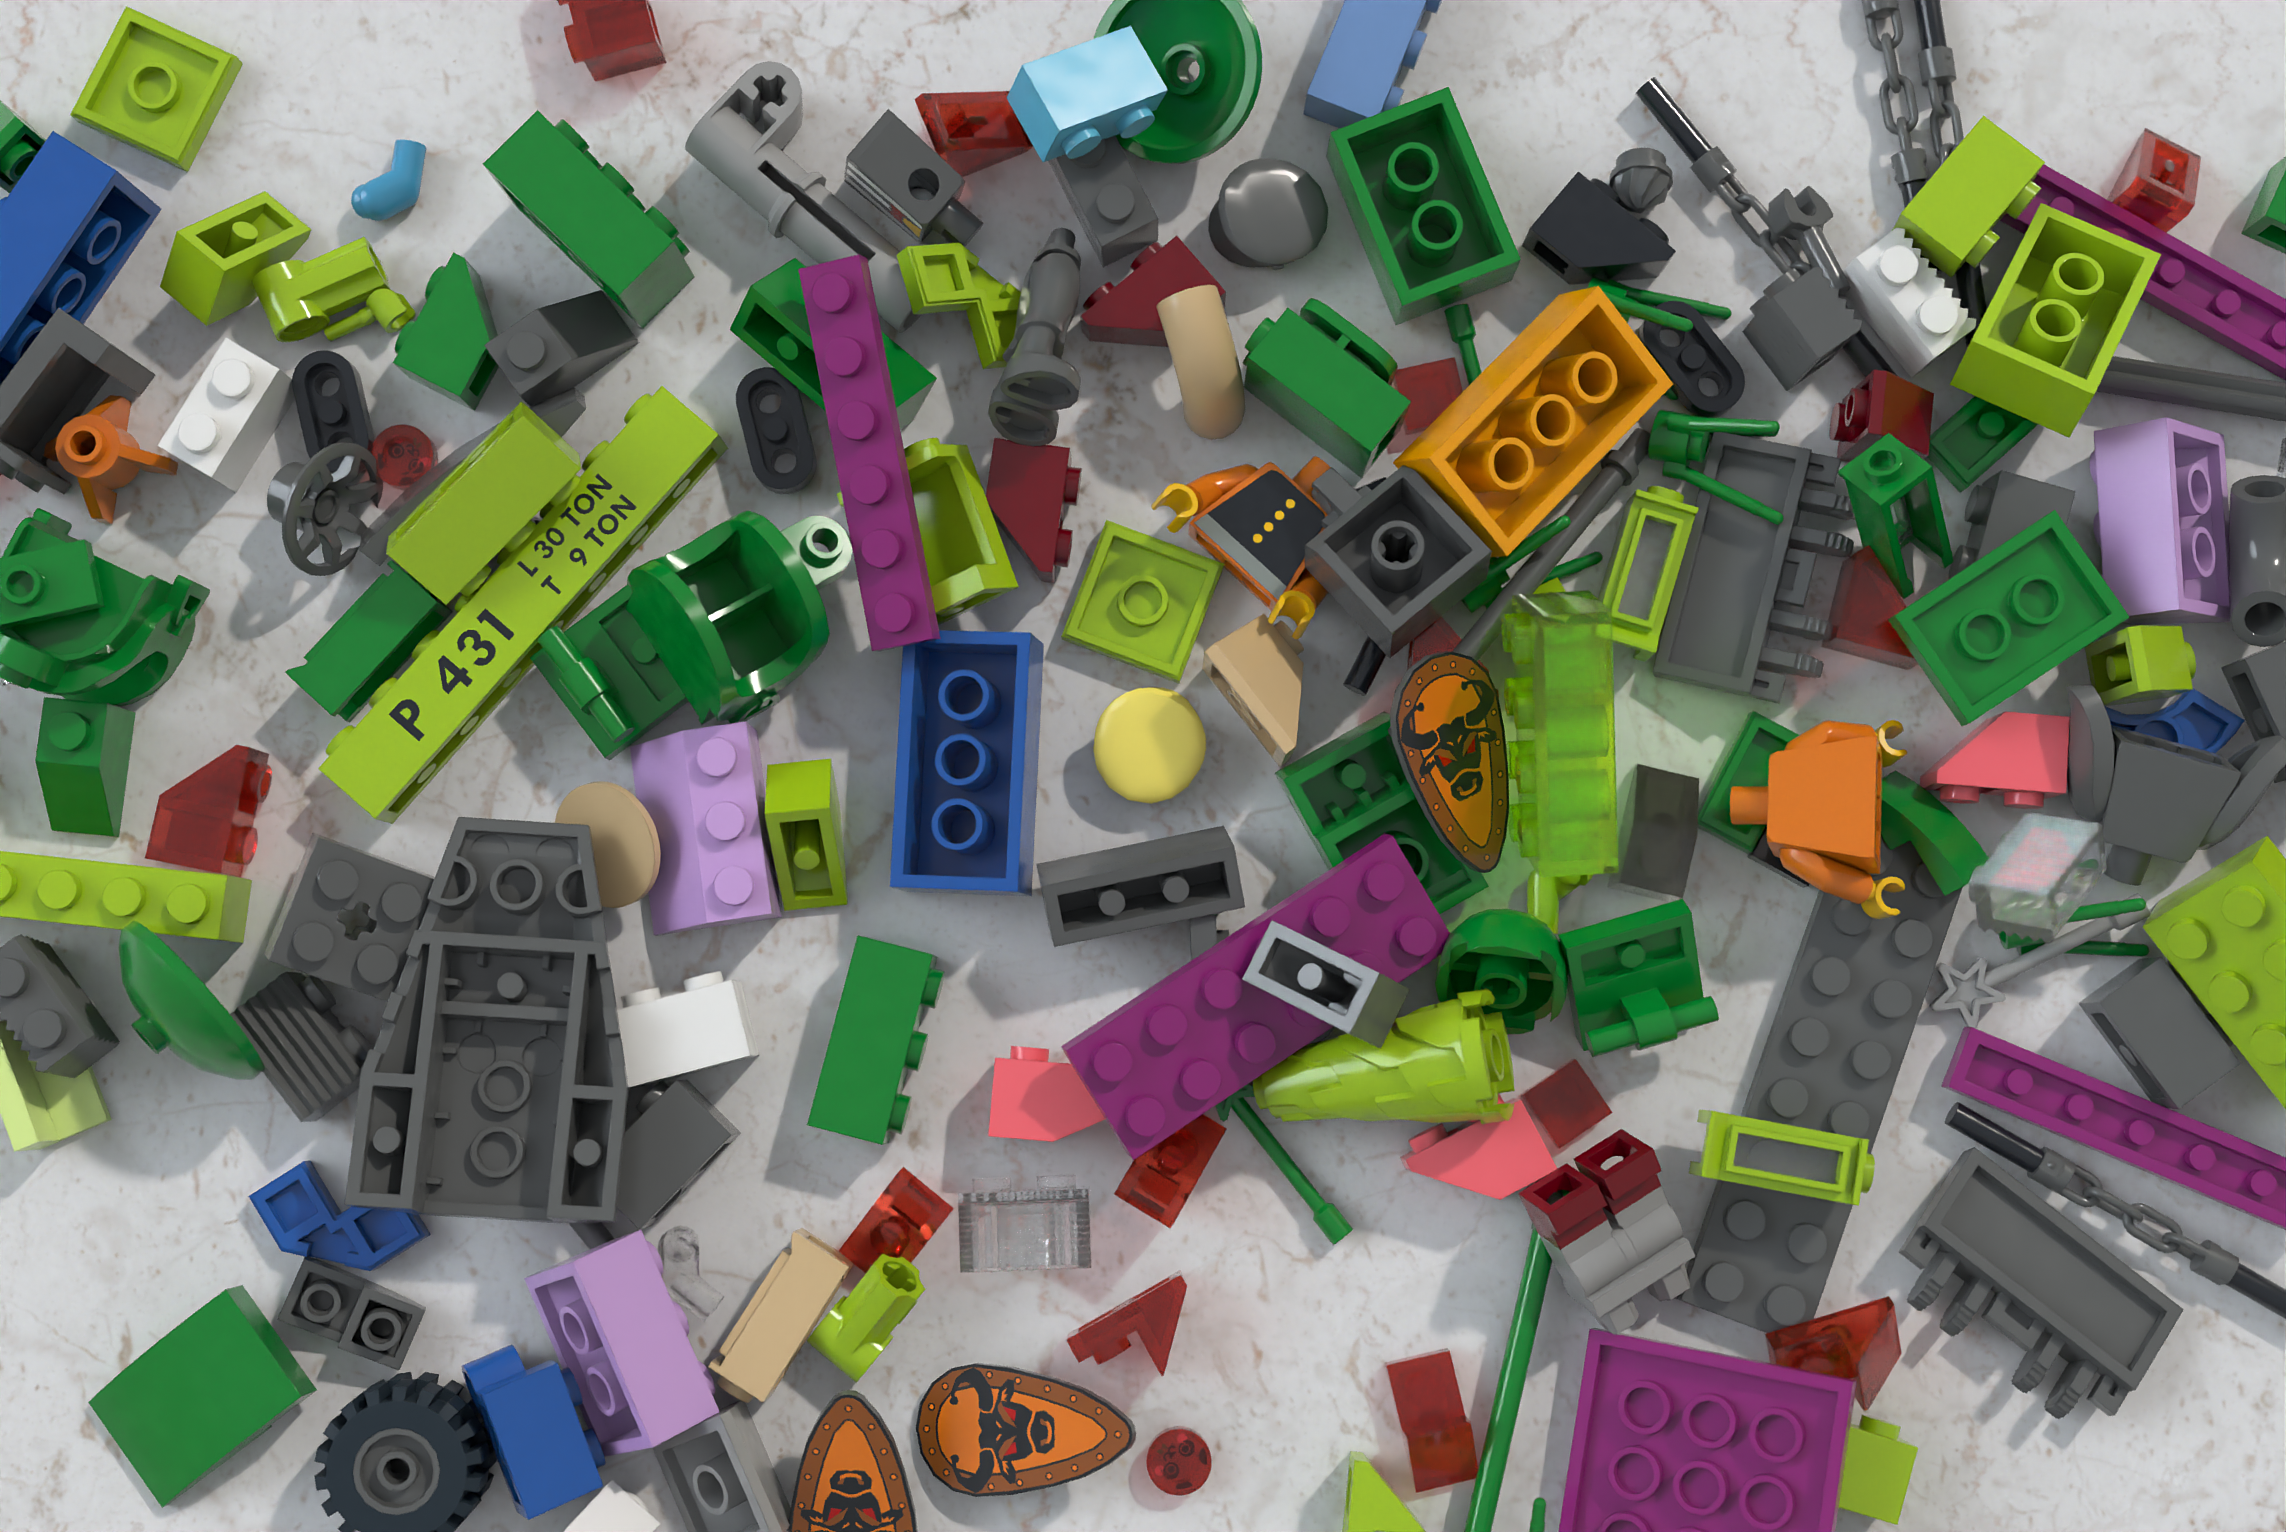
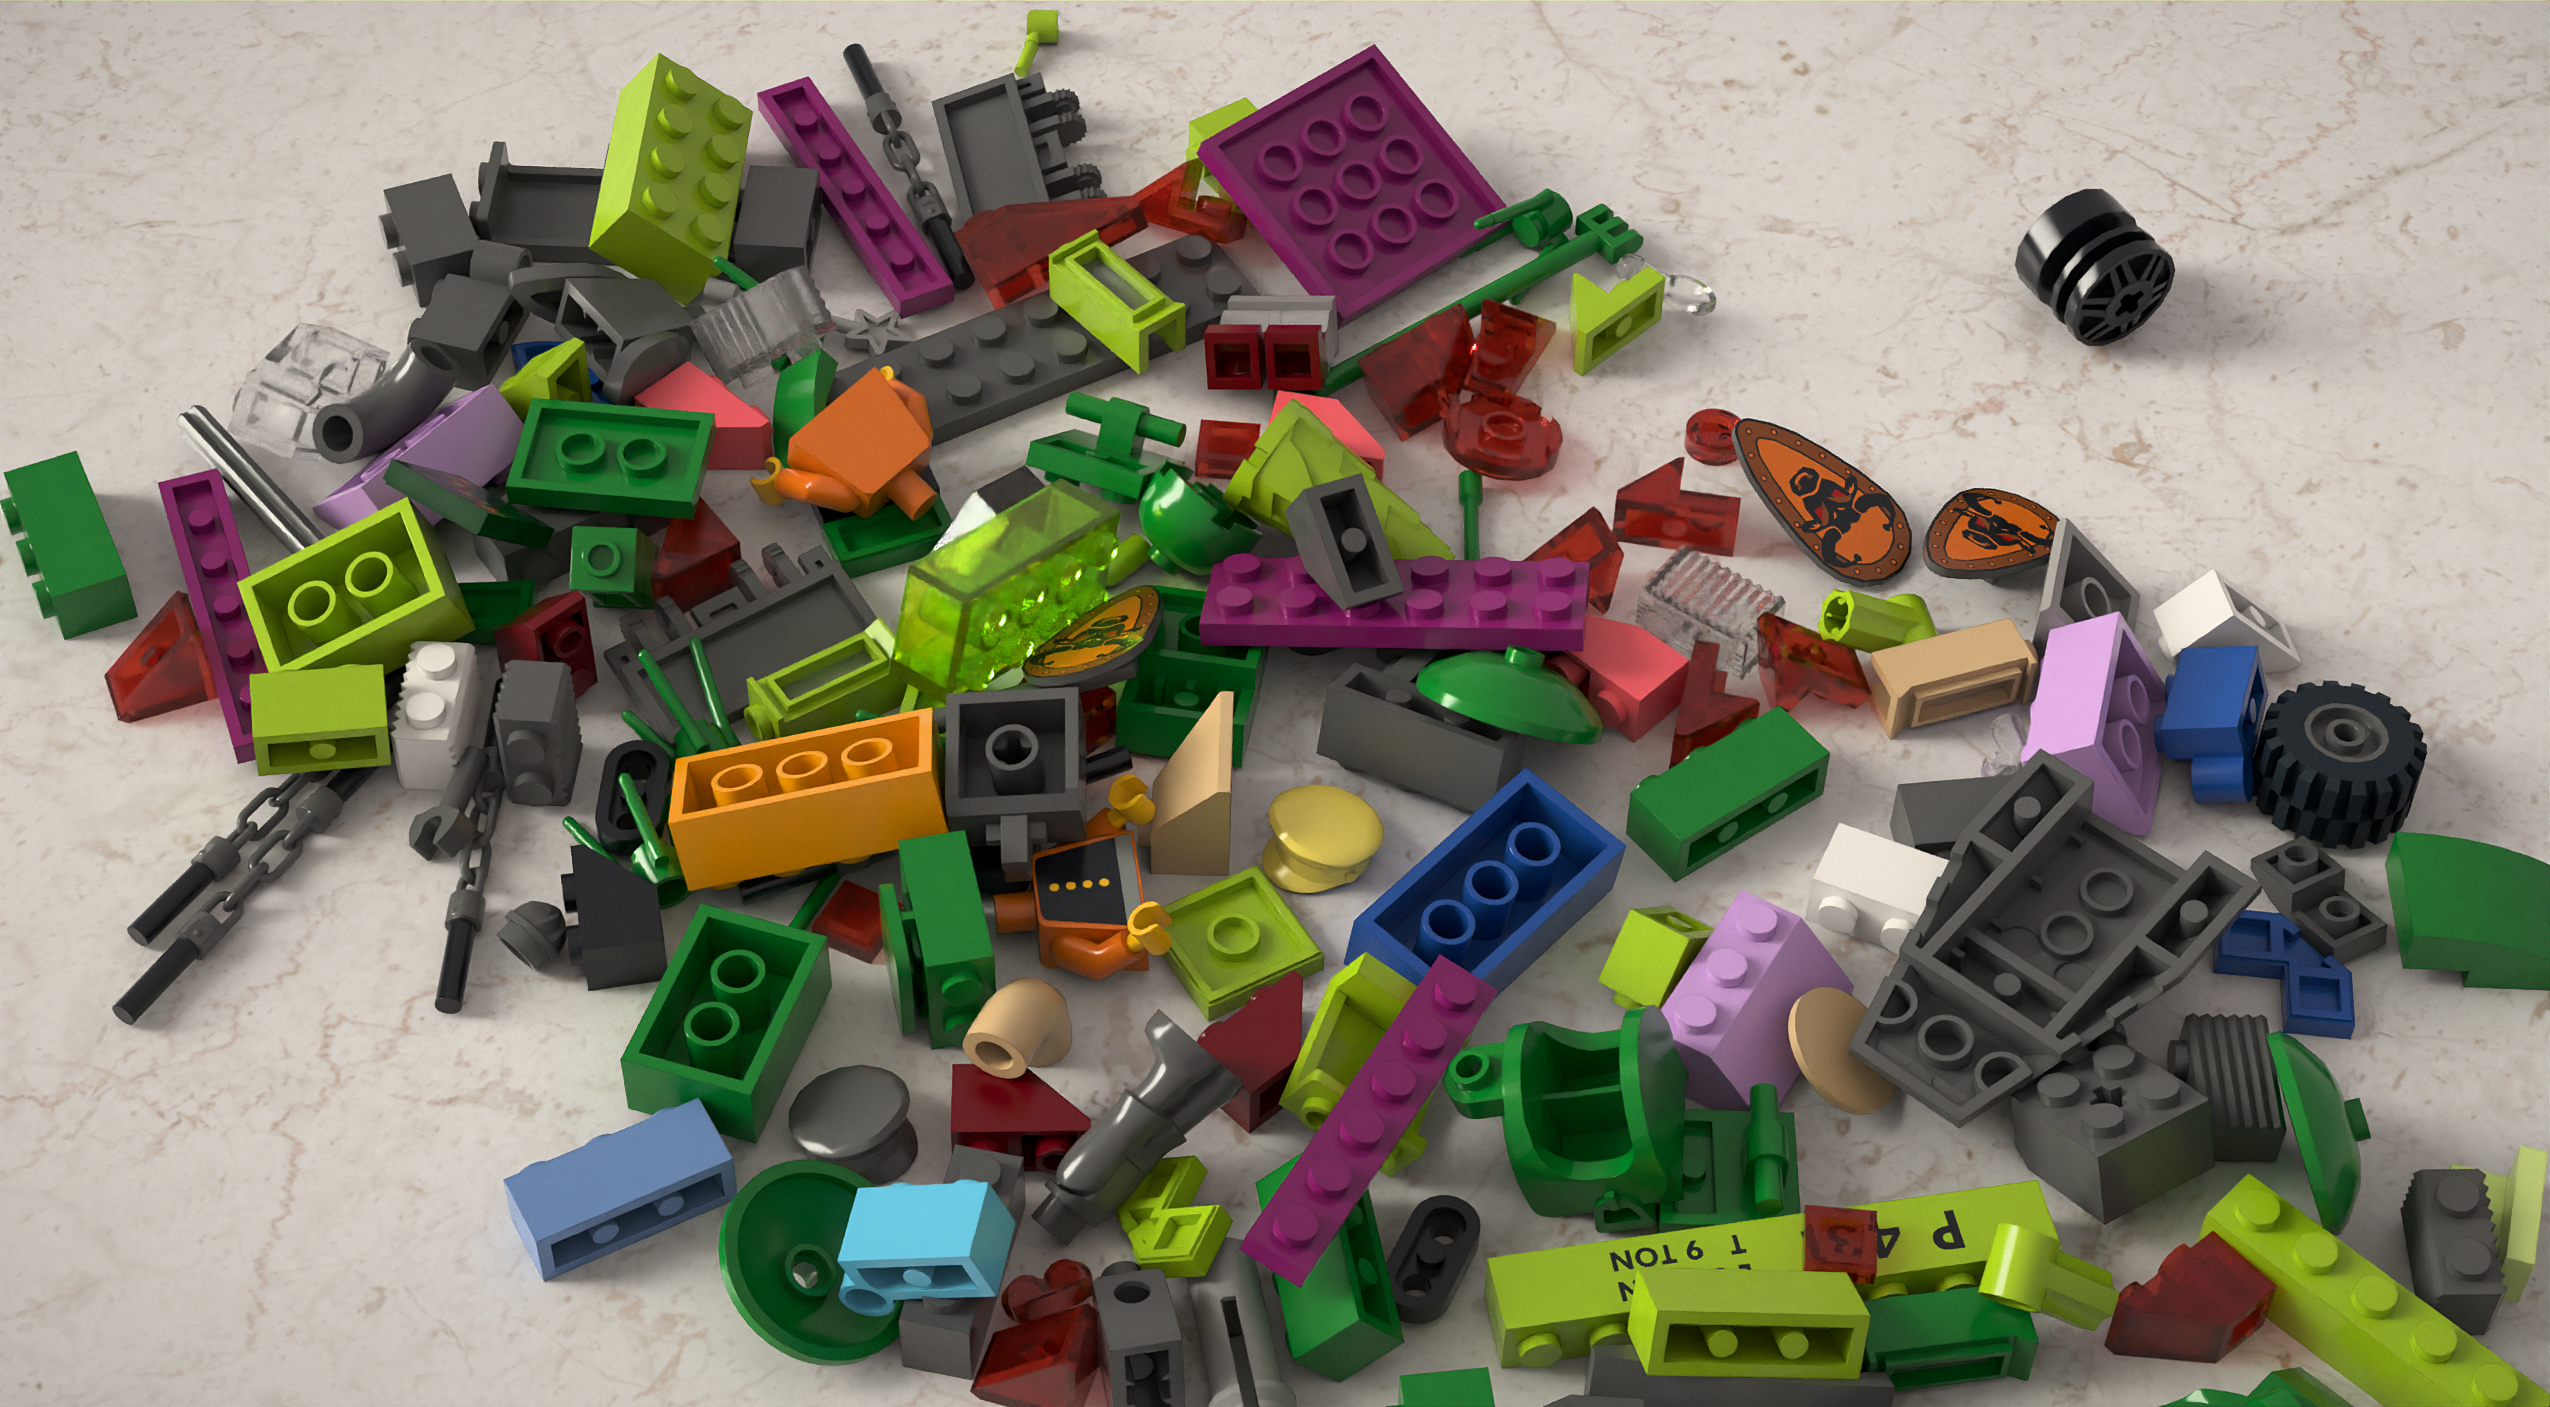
camera: 145 degrees left, 35 degrees down
(304, 713) = (2036, 1277): none -> lime piece
(473, 635) = (1840, 1242): none -> clear red tile
(945, 1095) = (1705, 708): none -> clear red slope
(1027, 183) = (1063, 1286): none -> clear red piece
(1080, 945) = (1513, 694): none -> green dish
(1349, 1301) = (1502, 436): none -> clear red tile
(1463, 1303) = (1420, 371): none -> clear red slope
(1914, 1177) = (1014, 242): none -> clear red slope
(2055, 453) = (468, 505): none -> dark green tile
(2181, 1497) = (1041, 28): none -> lime hand

